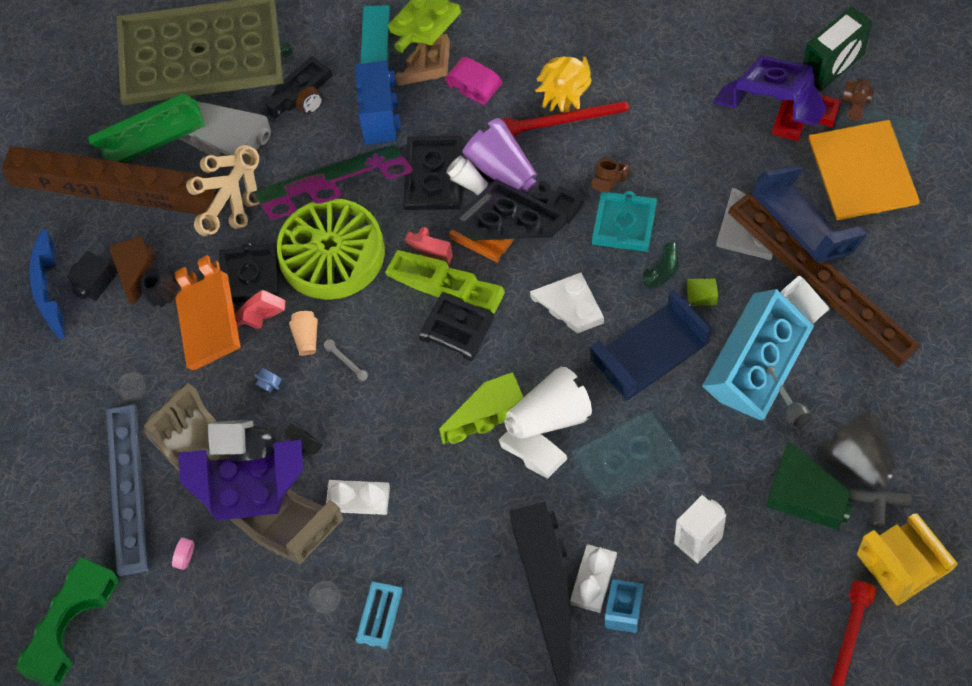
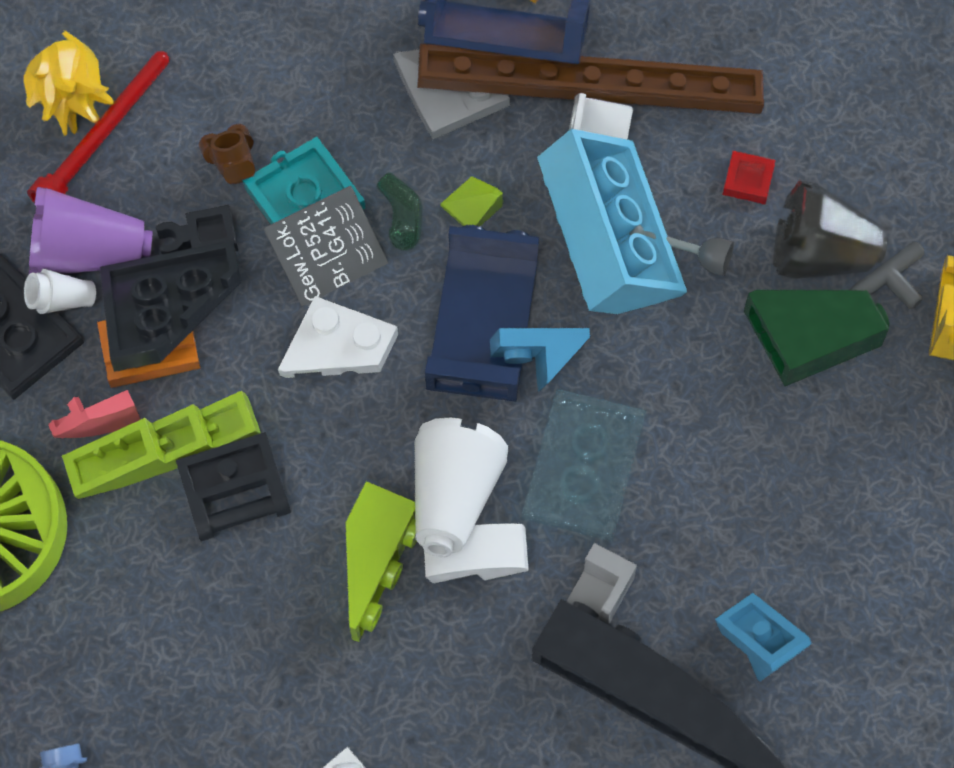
camera: 50 degrees left, 5 degrees up
(304, 331) = (47, 659): light nougat cone -> none
(329, 345) = (94, 647): light grey hinge -> none
(576, 517) = (603, 582): none -> light grey panel
(593, 578) = (692, 636): white tile -> none
(609, 253) = (326, 245): none -> dark grey sticker
(666, 388) = (548, 345): none -> dark azure slope
(700, 528) = (760, 472): white brick -> none
(856, 392) = (749, 177): none -> red tile

